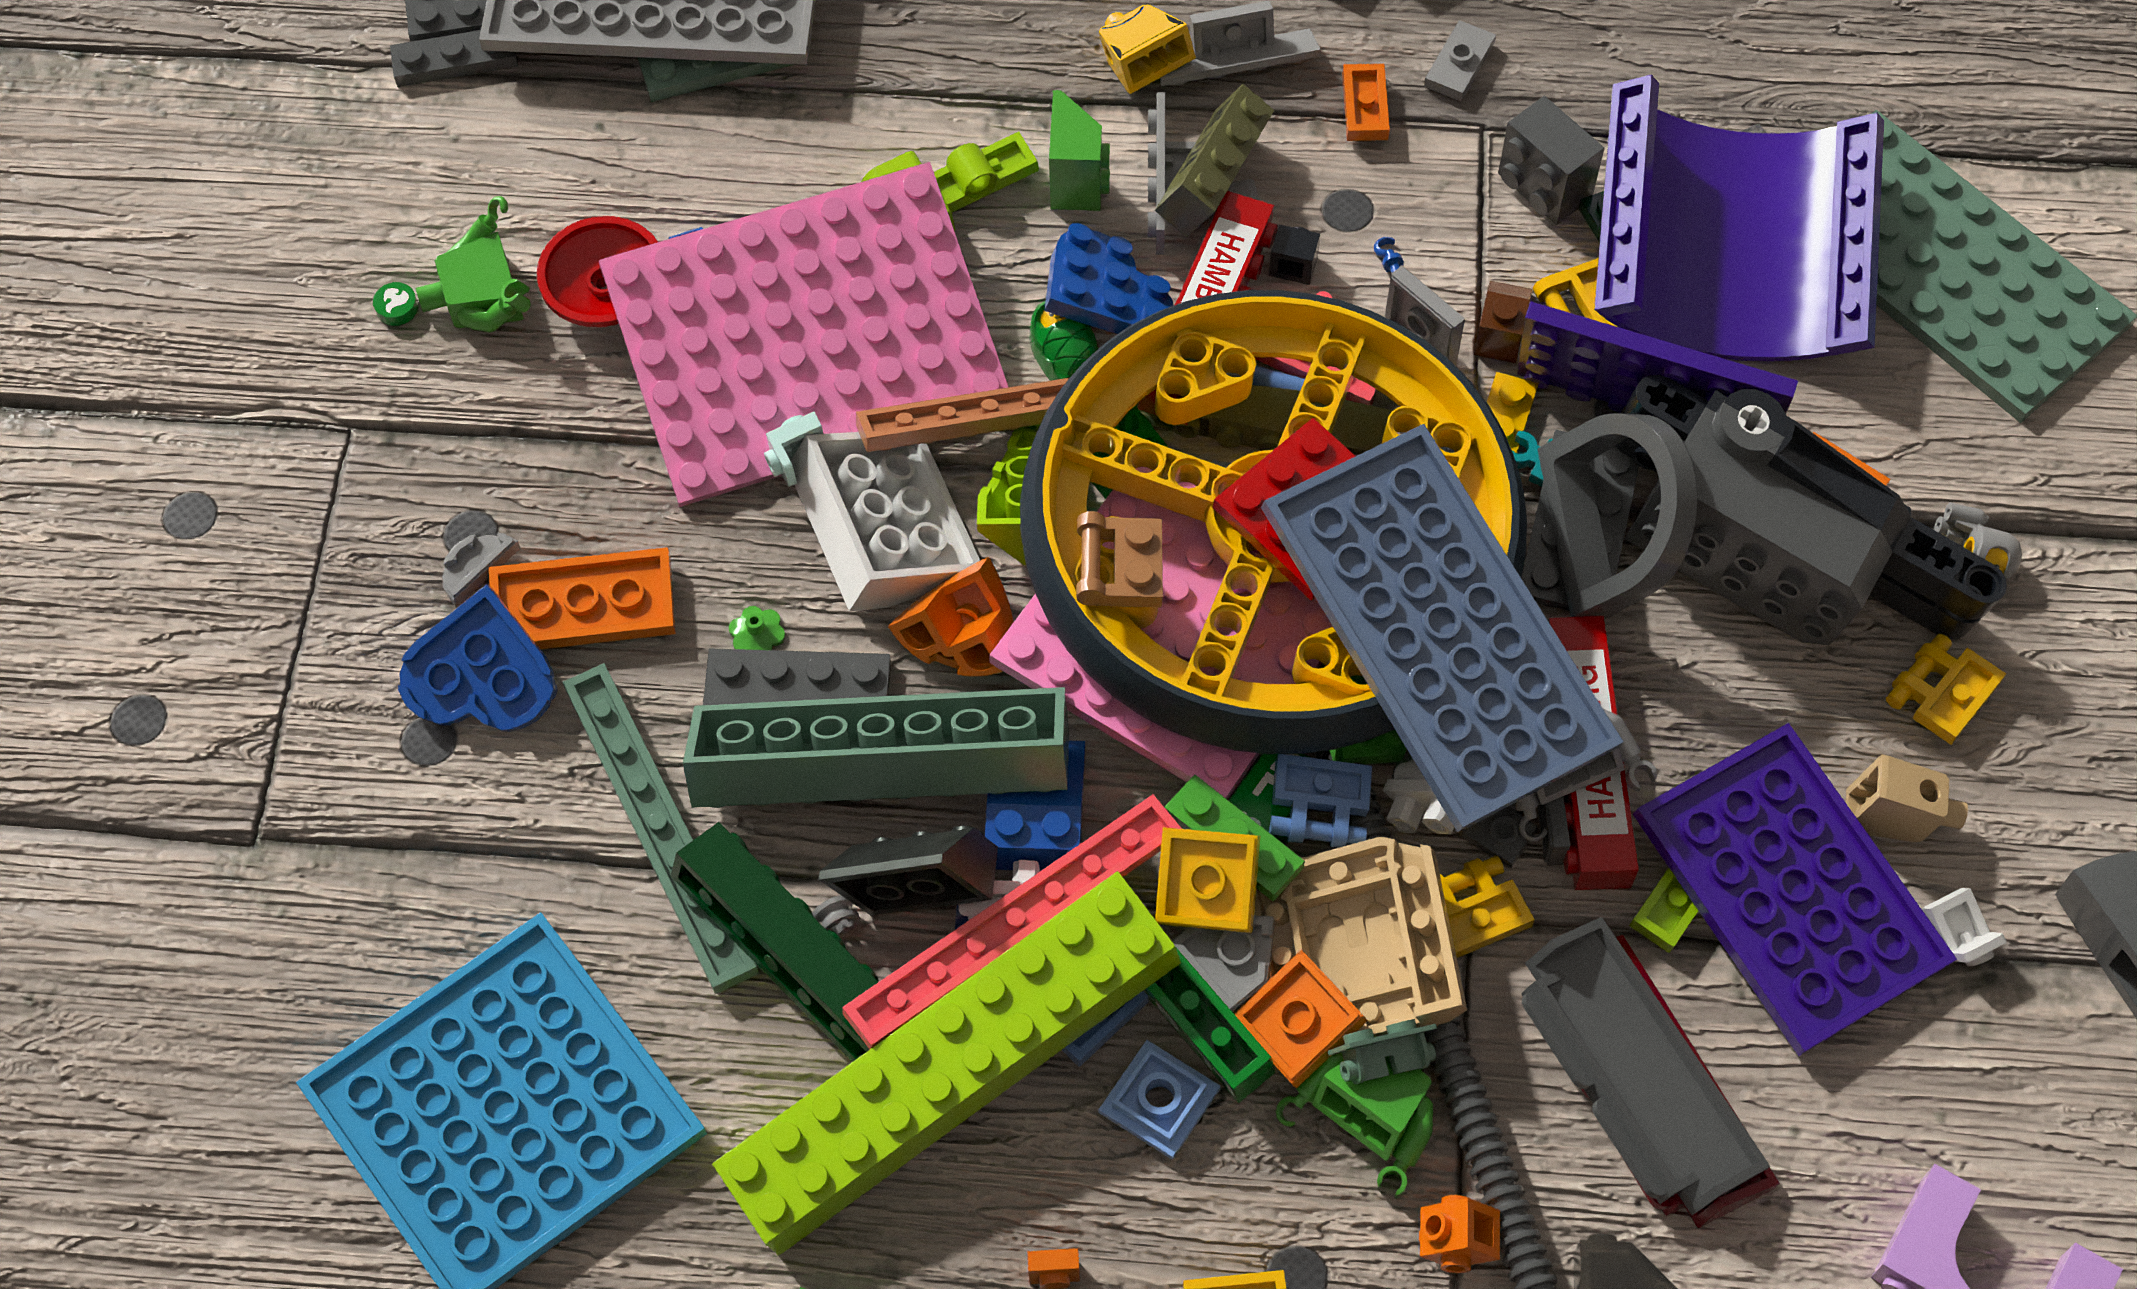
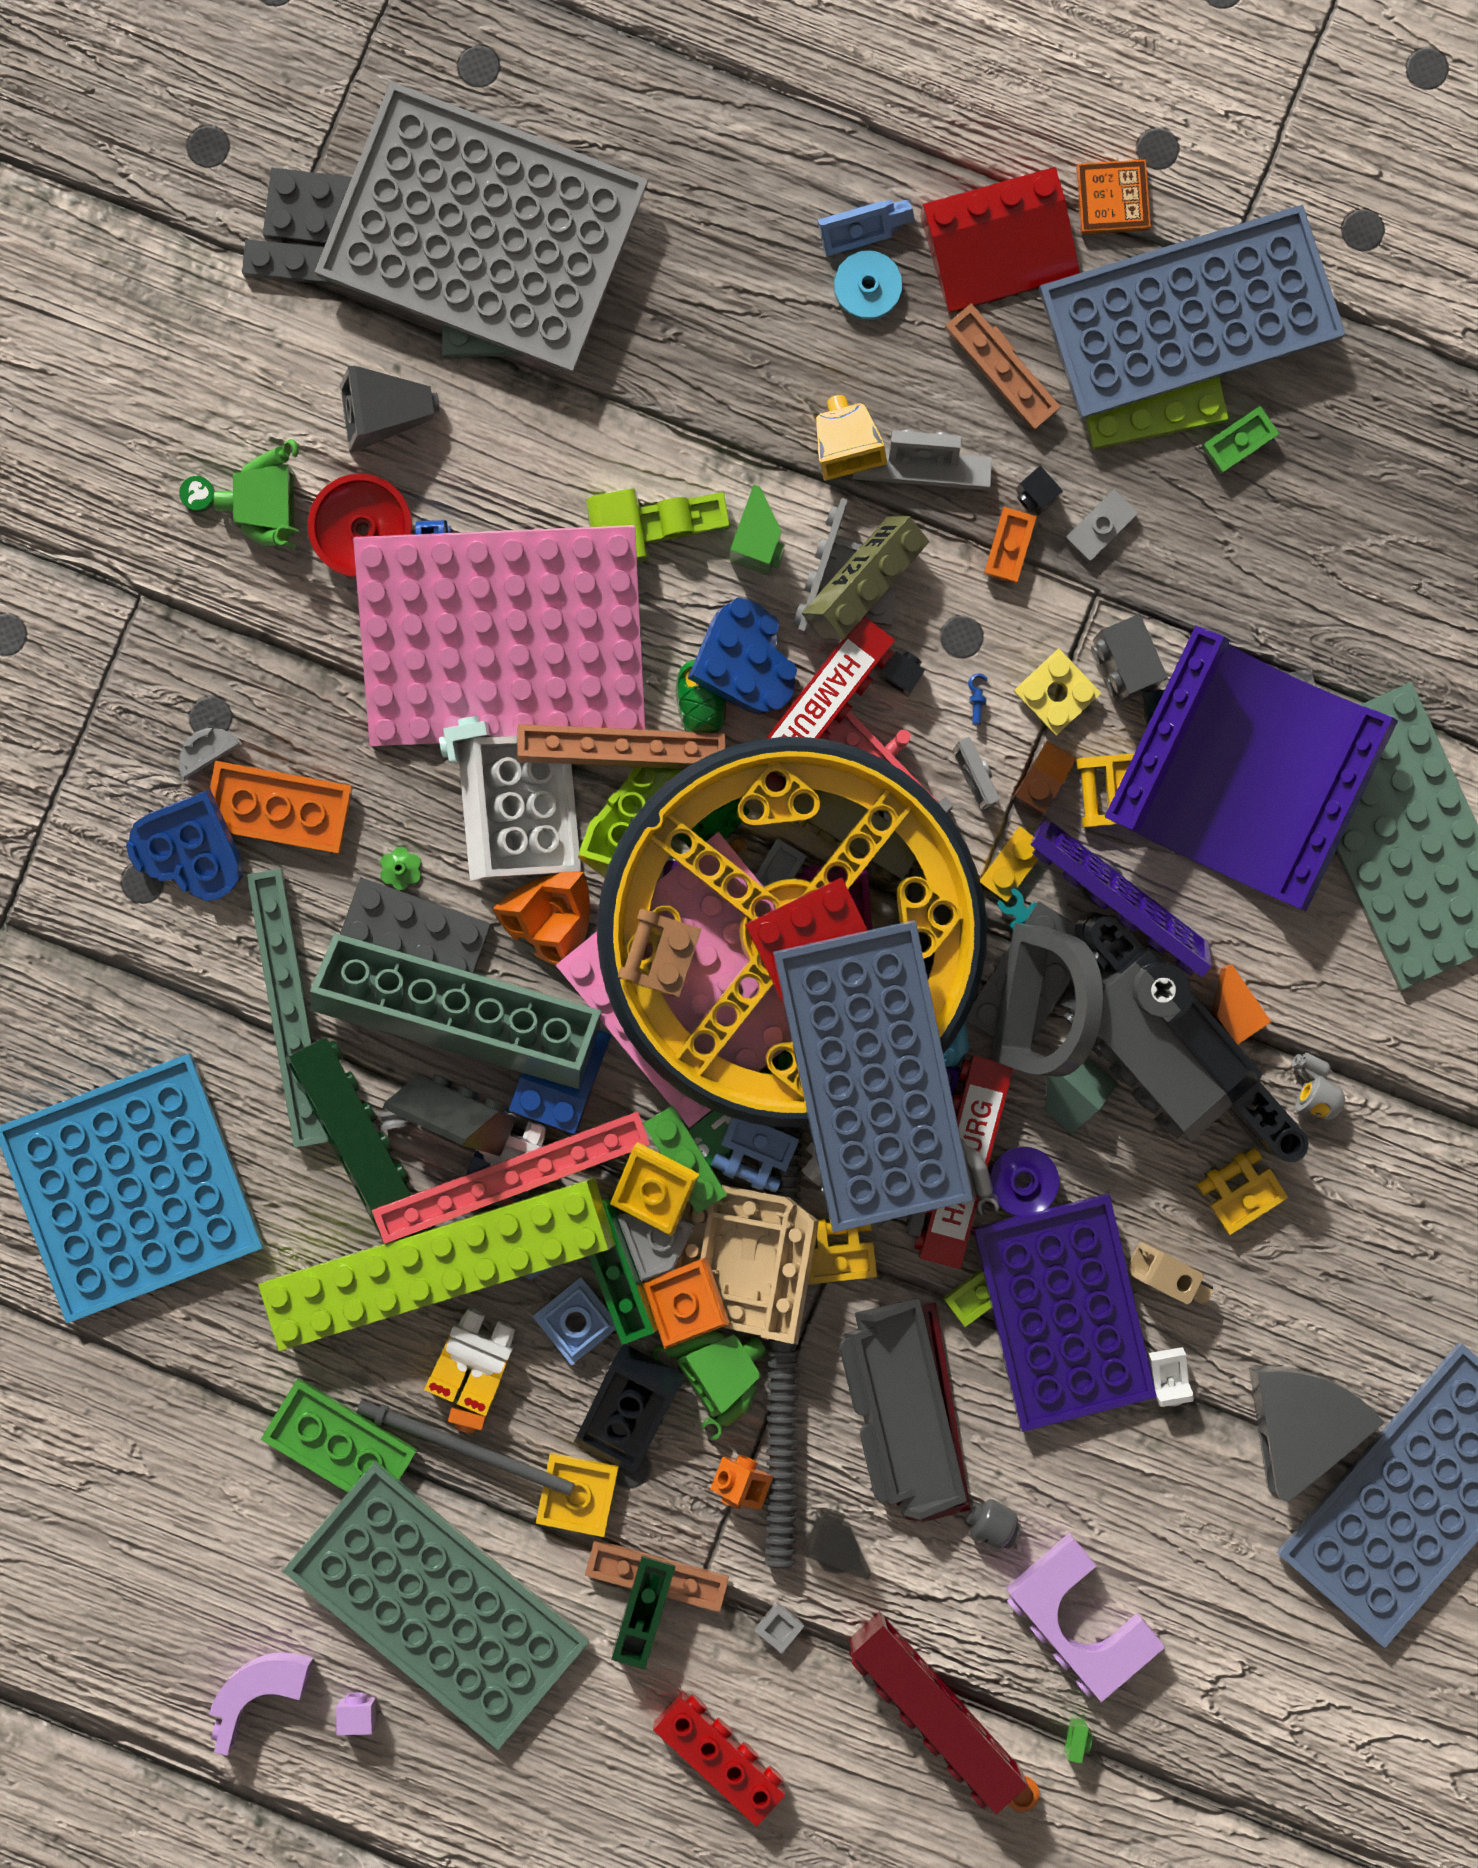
camera: 15 degrees right, 25 degrees up
(592, 152) = (382, 406): none -> dark grey slope
(1033, 1175) = (476, 1351): none -> hips
(1270, 1190) = (629, 1408): none -> black slope
(1366, 1054) = (717, 1349): sand green hinge -> none
(1376, 40) = (1038, 491): none -> black plate
(1480, 208) = (1062, 671): none -> light yellow piece
(1675, 734) = (1042, 1180): none -> dark purple dish
(1688, 637) = (1078, 1096): none -> sand green slope
(1820, 1190) = (993, 1525): none -> dark grey head

